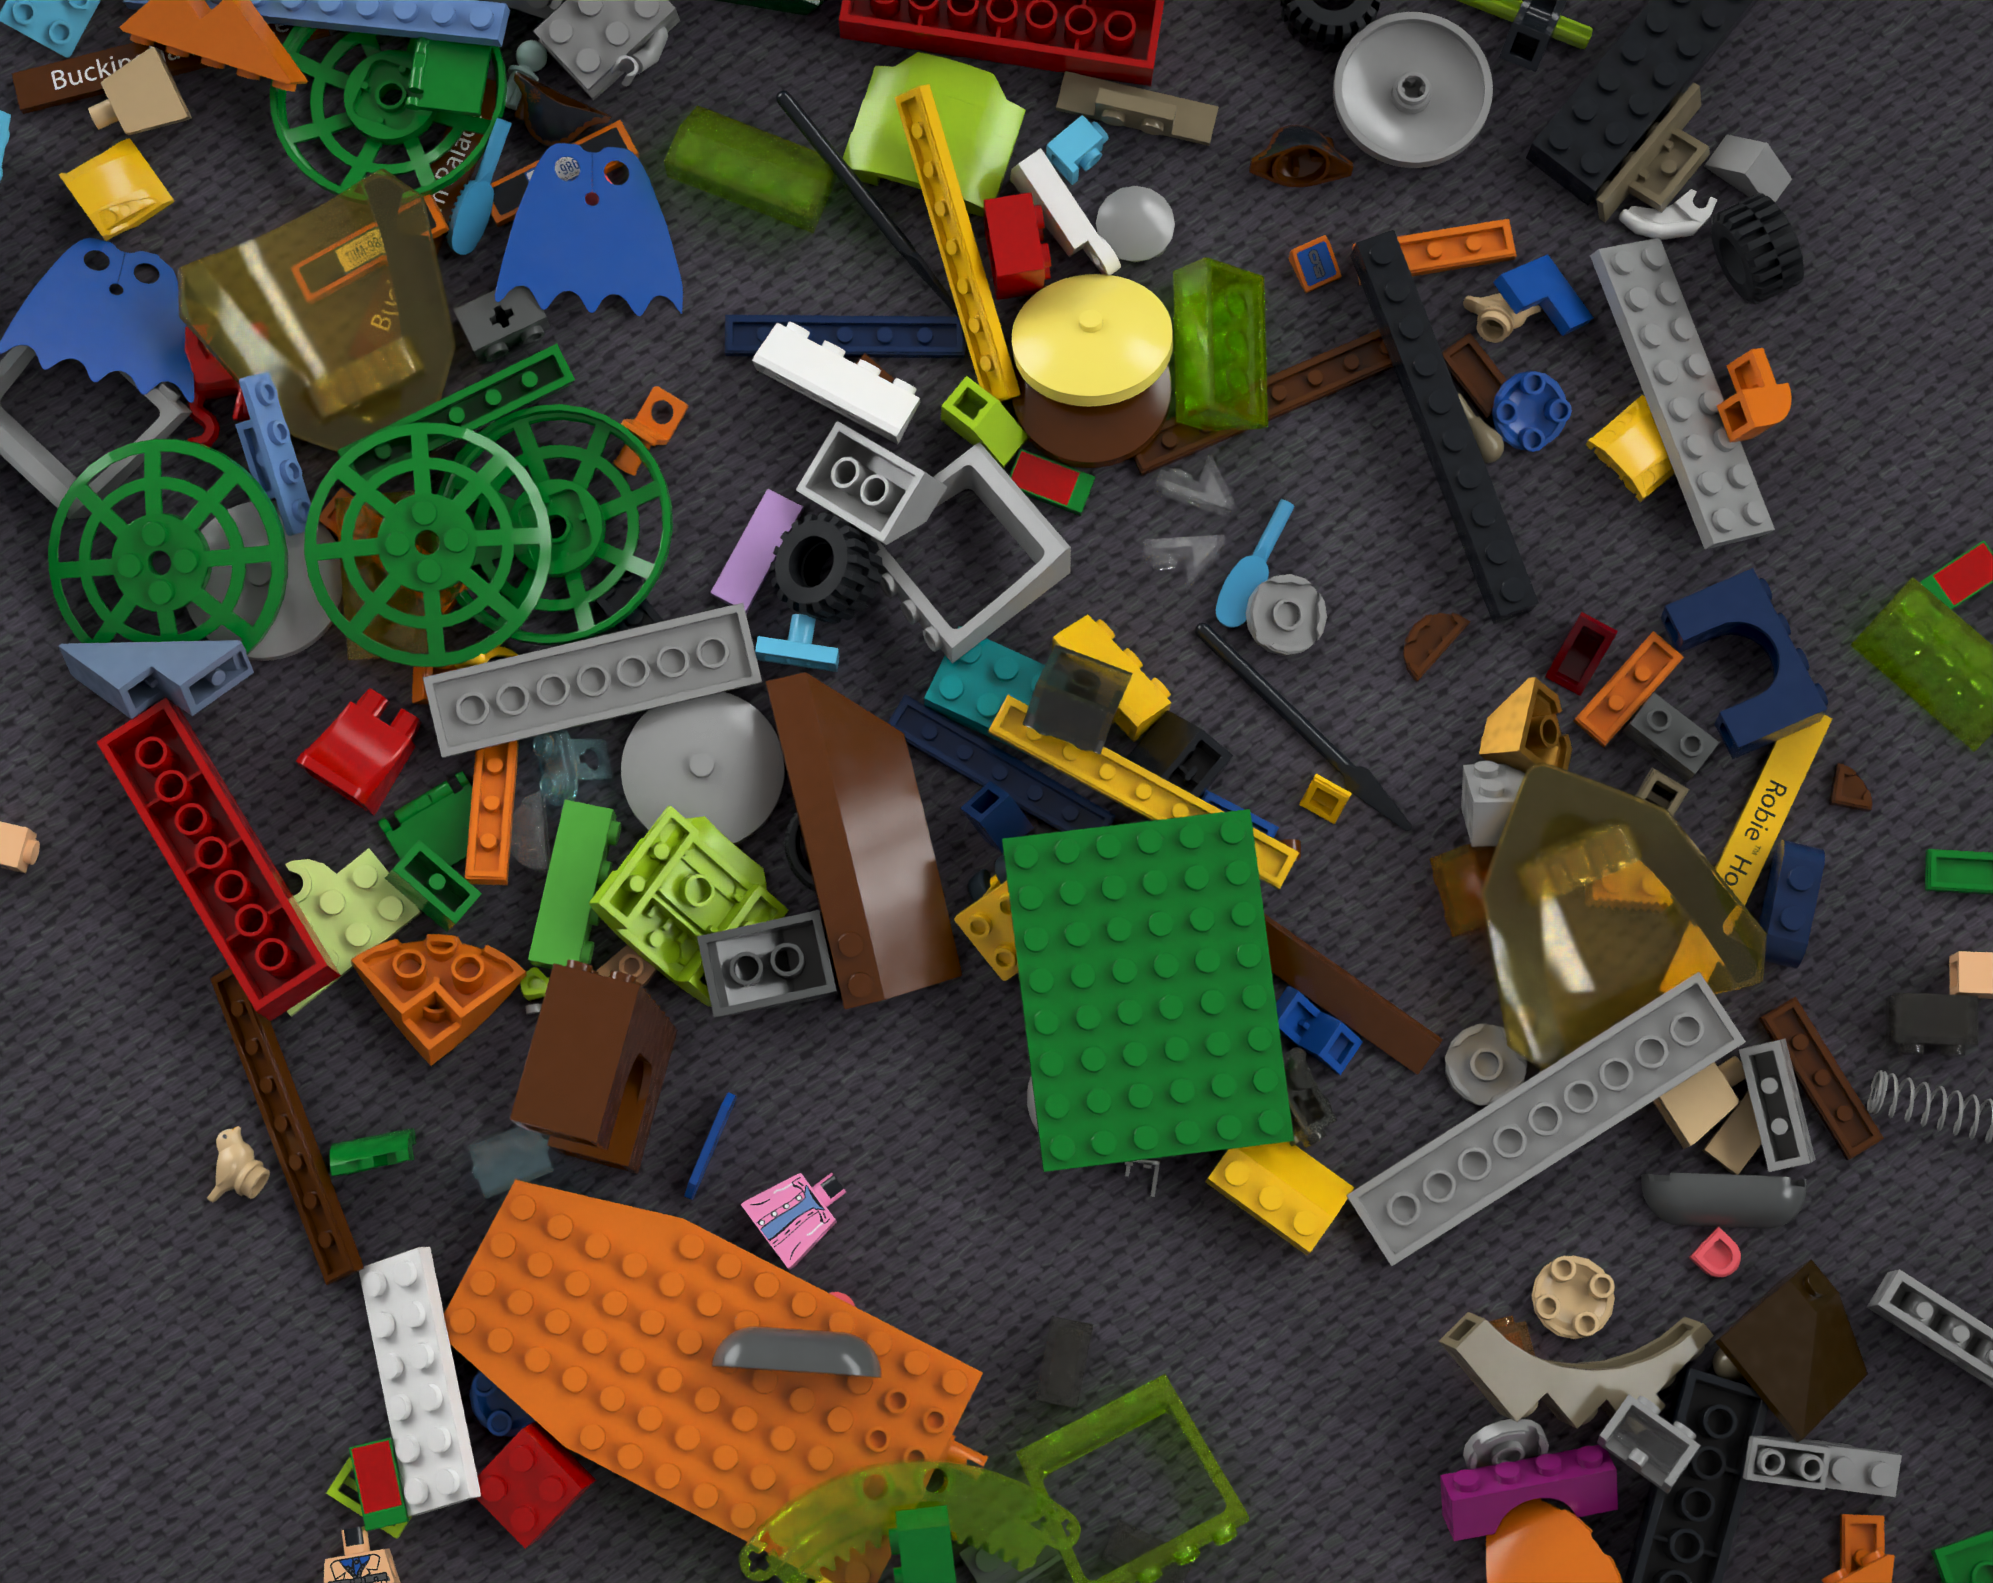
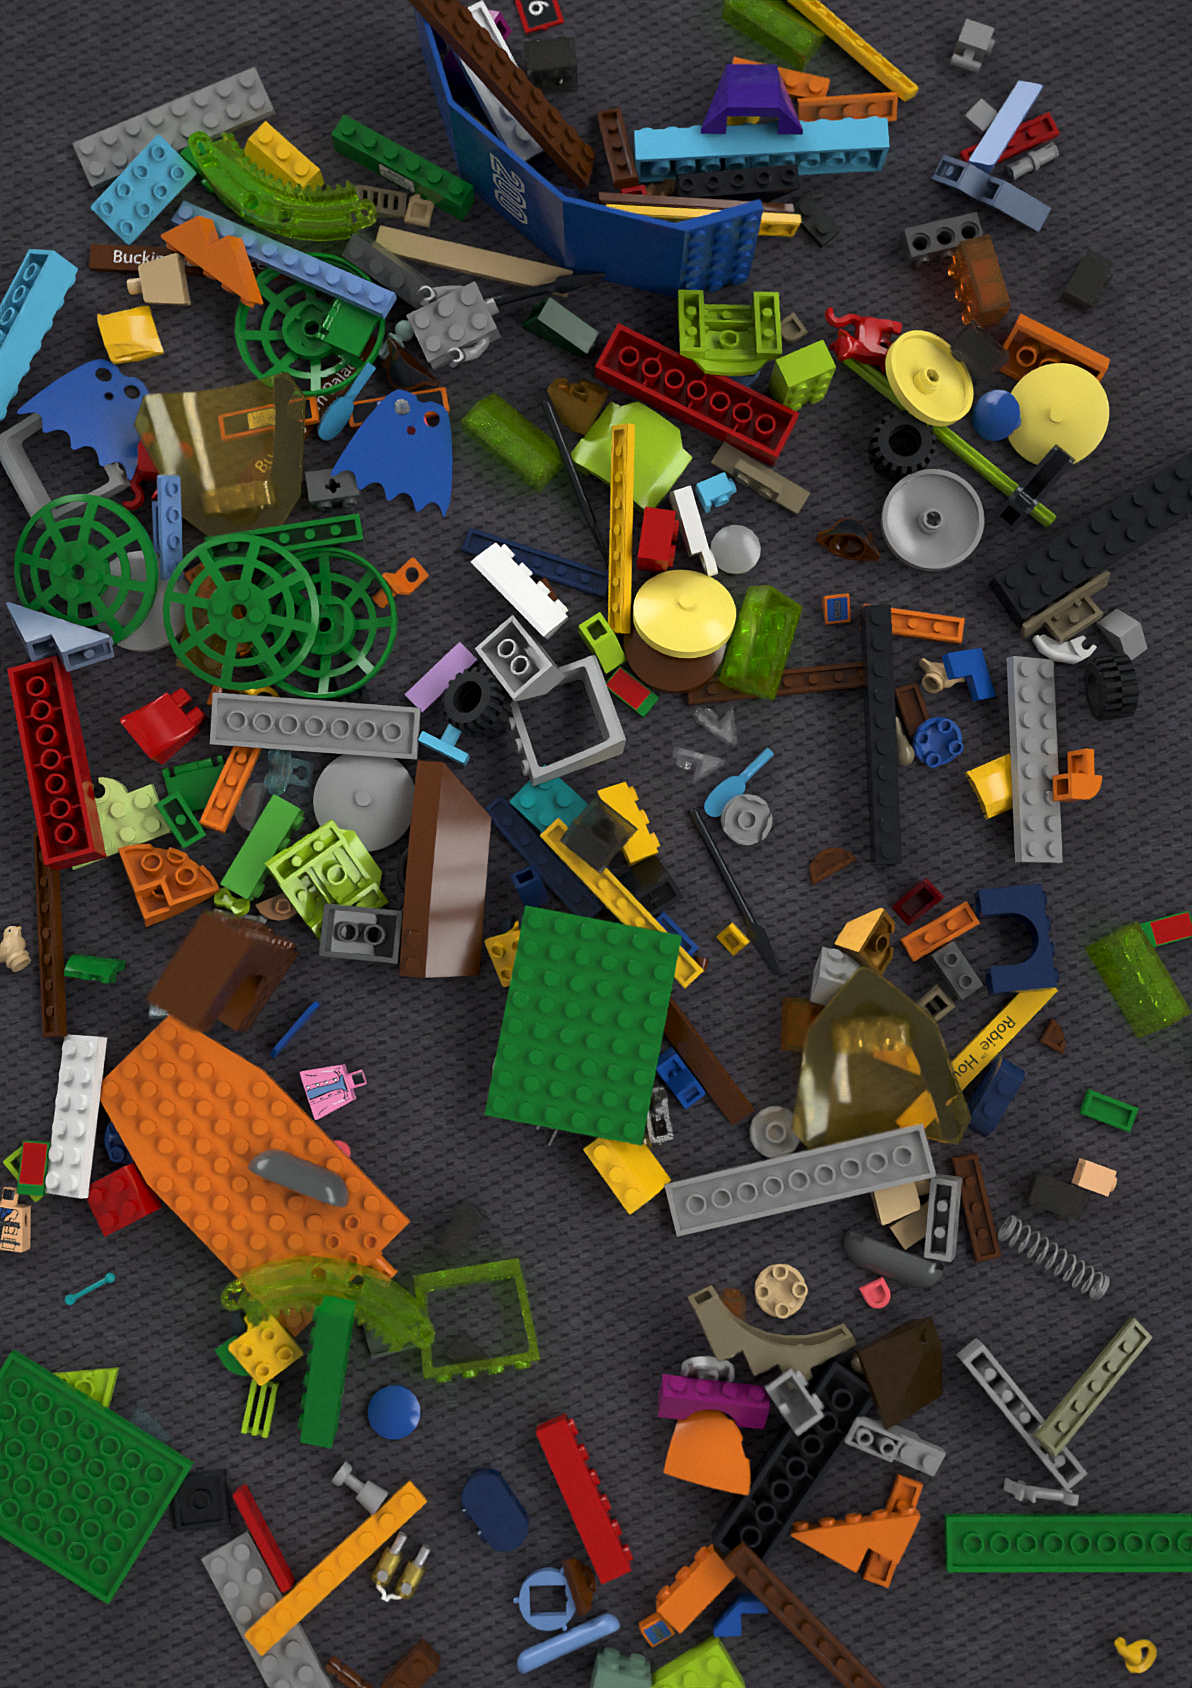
camera: 20 degrees right, 5 degrees up
(828, 82) = (577, 402): none -> pearl gold slope

